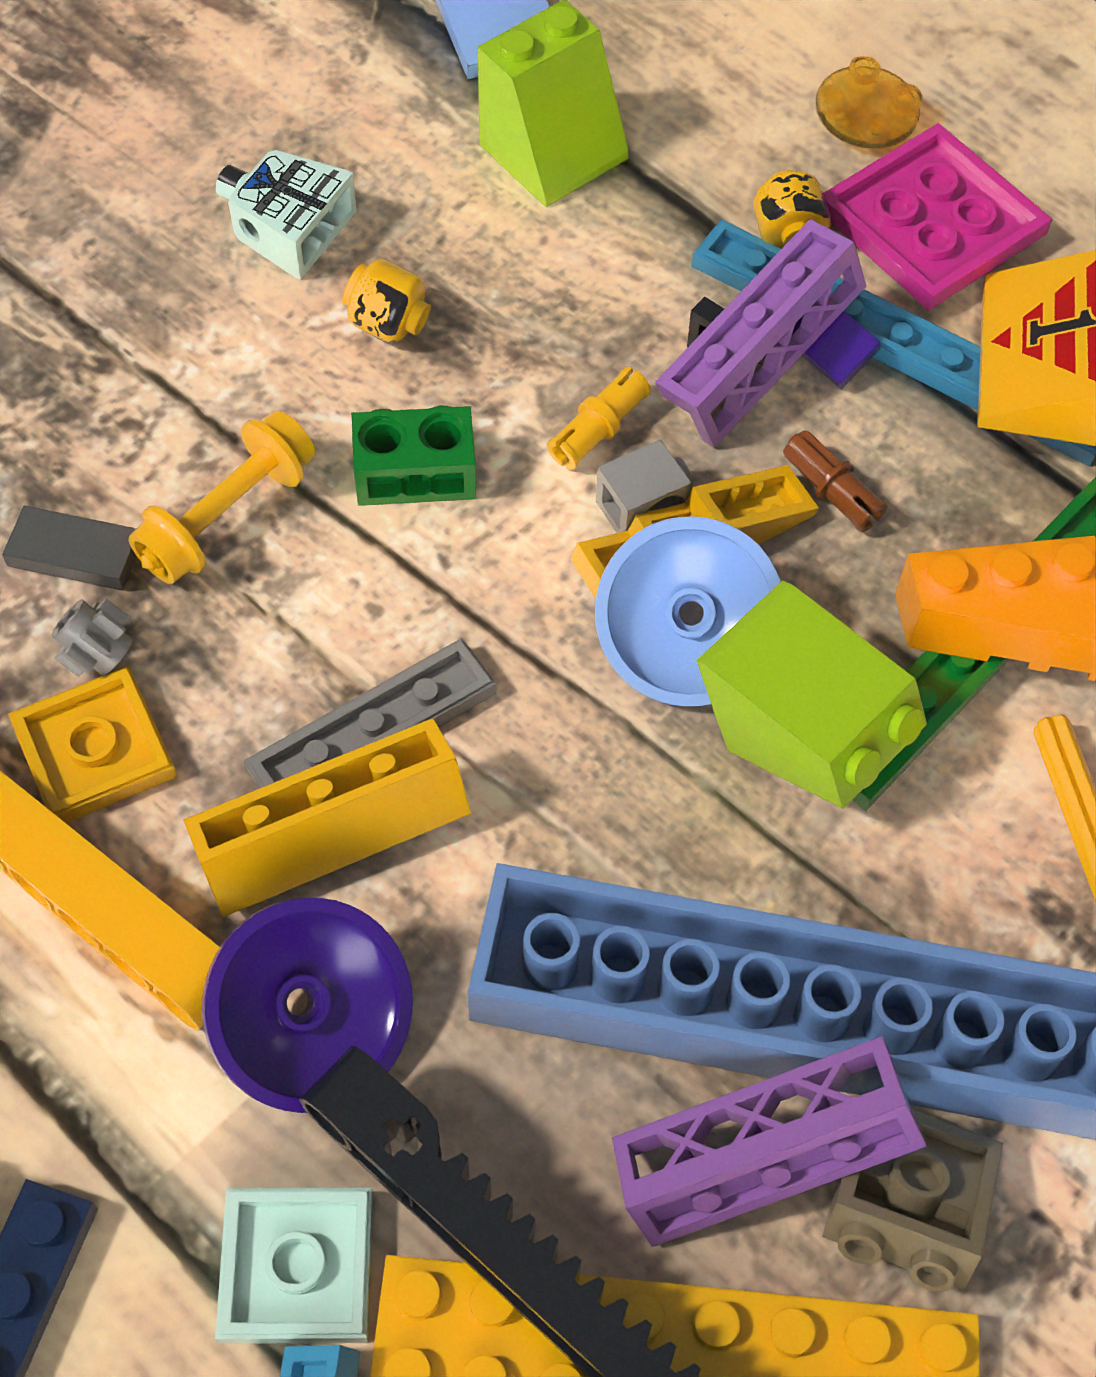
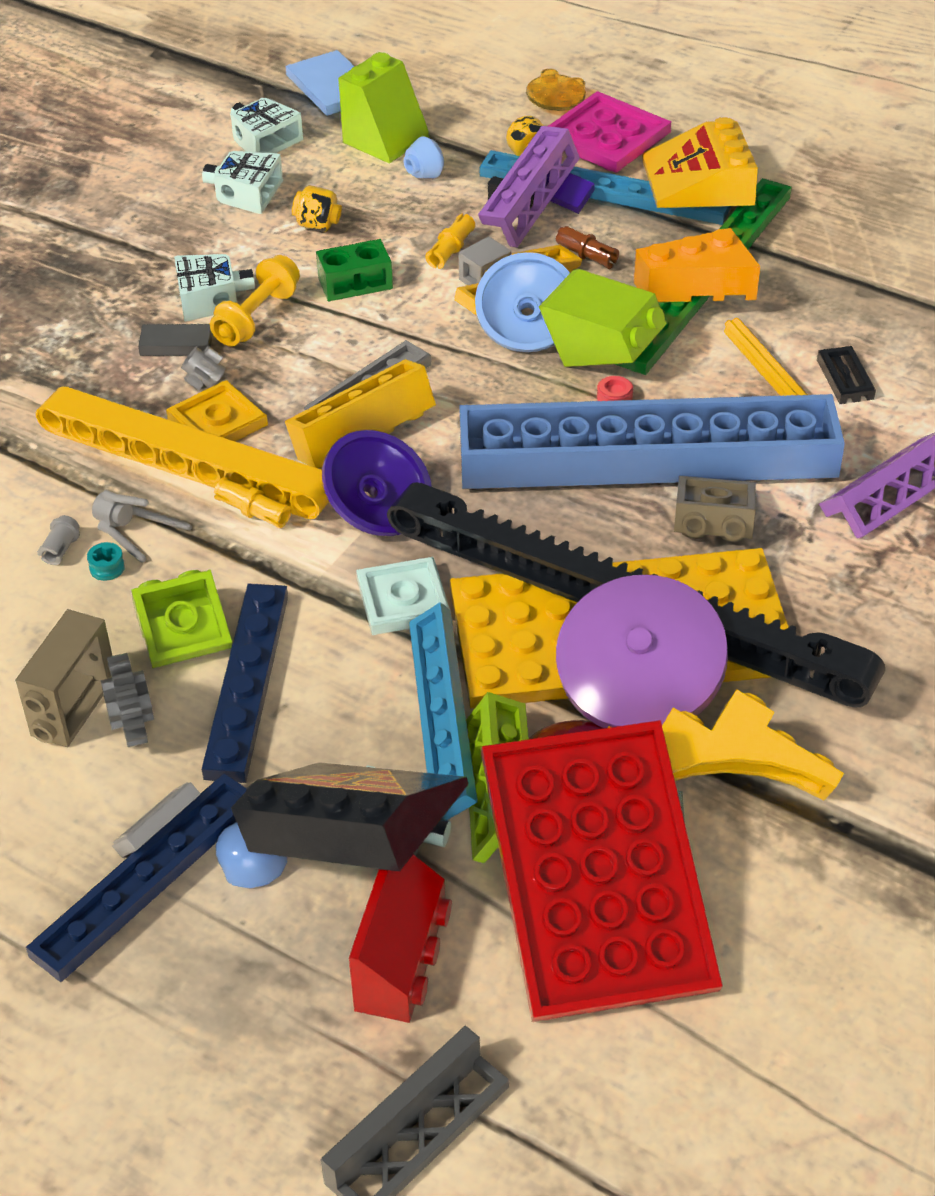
camera: 10 degrees left, 15 degrees down
(90, 977) = (252, 502): none -> yellow pin
(156, 439) = (207, 282): none -> light aqua torso
(351, 95) = (265, 126): none -> light aqua torso
(599, 222) = (424, 159): none -> light blue cone
(767, 1156) = (634, 491): medium lavender fence -> none
(801, 840) = (614, 389): none -> coral tile

